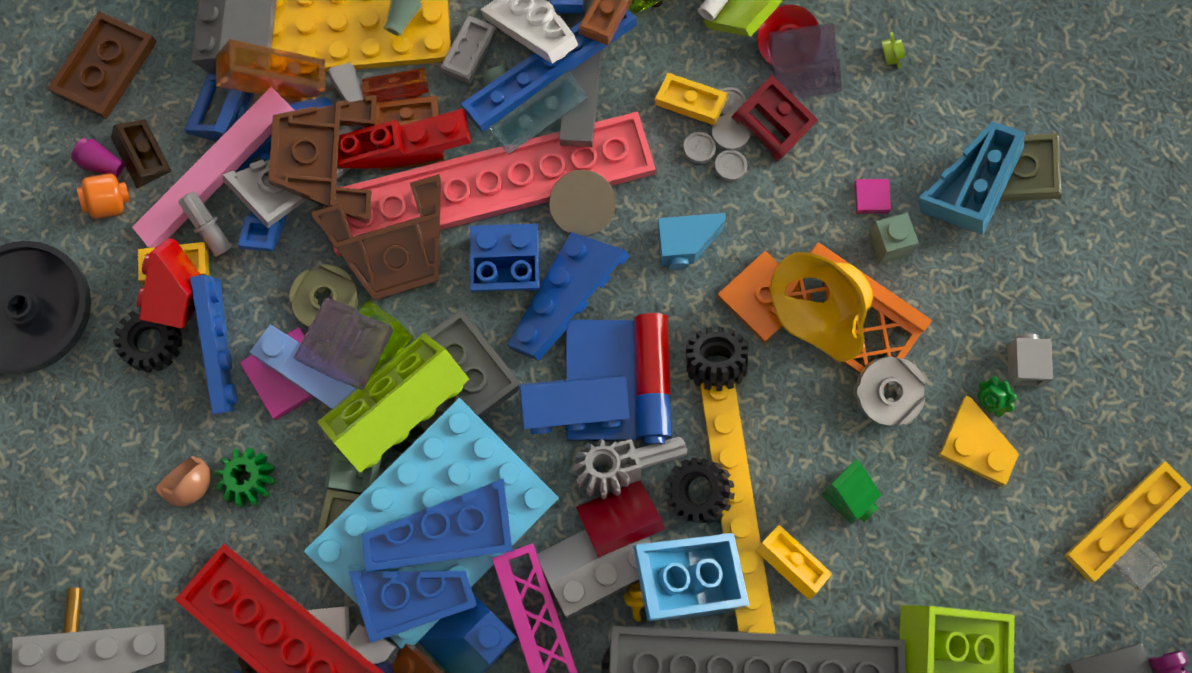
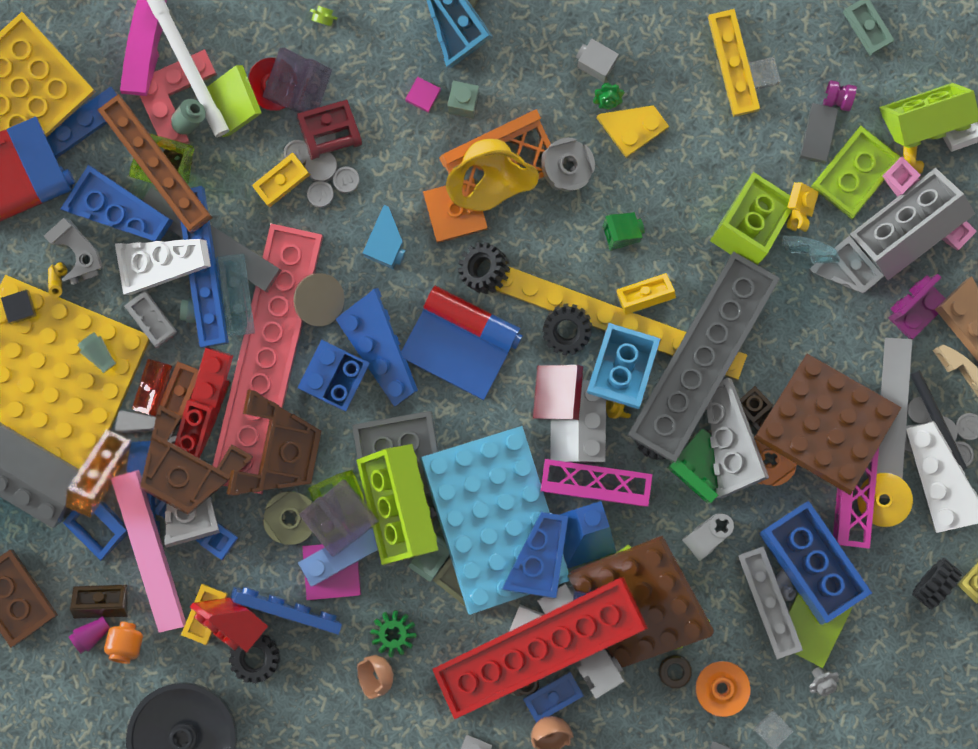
camera: 60 degrees left, 10 degrees up
(204, 223) = (189, 576): light grey axle -> none
(447, 531) = (509, 507): blue wing -> none
(574, 403) = (464, 381): blue brick -> none
(623, 461) = (520, 369): light grey gear -> none

